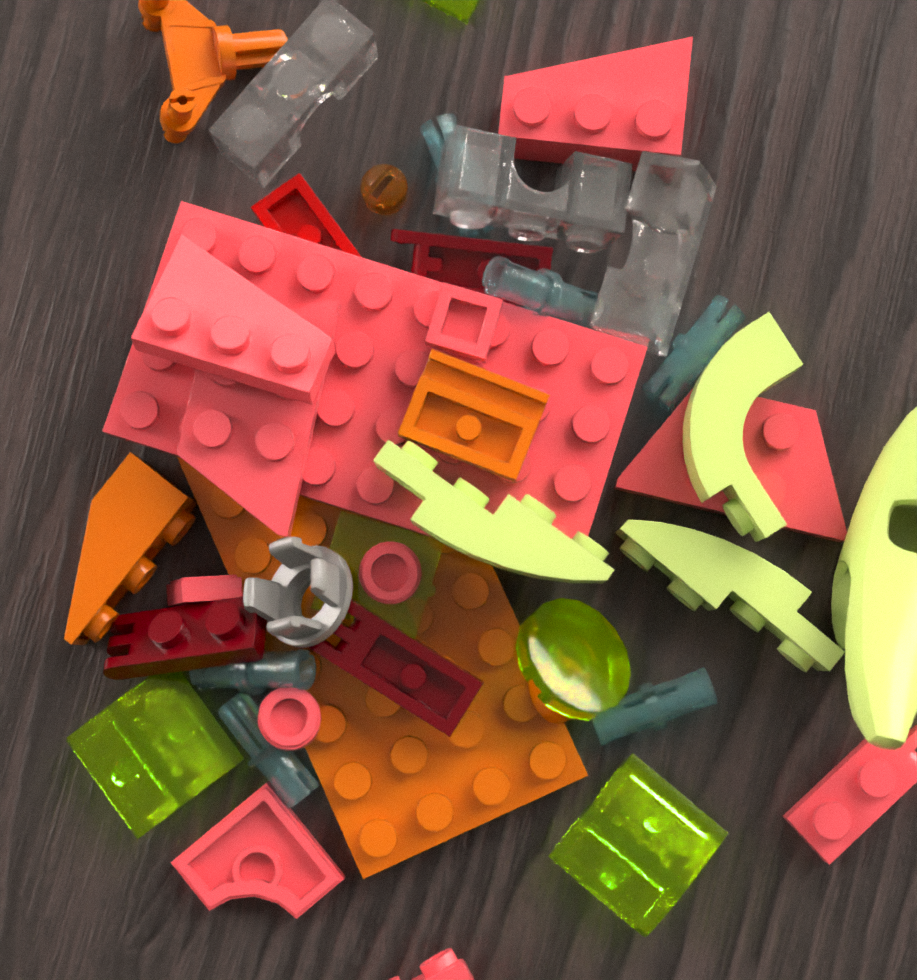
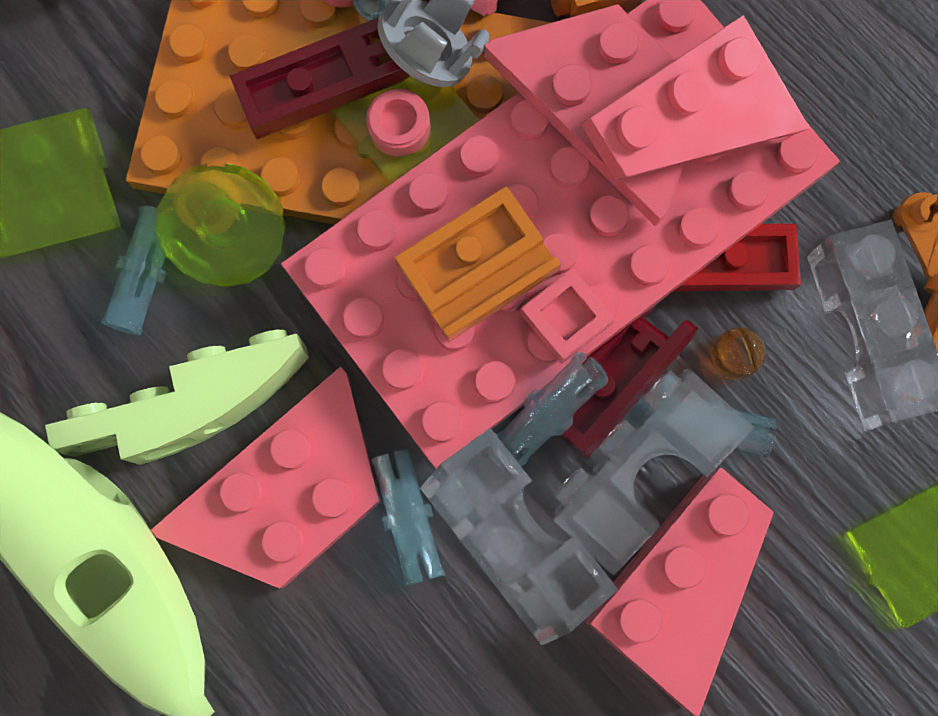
camera: 120 degrees right, 5 degrees down
(512, 539) = (346, 217): yellowish green slope -> none
(715, 420) = (348, 514): yellowish green arch -> none

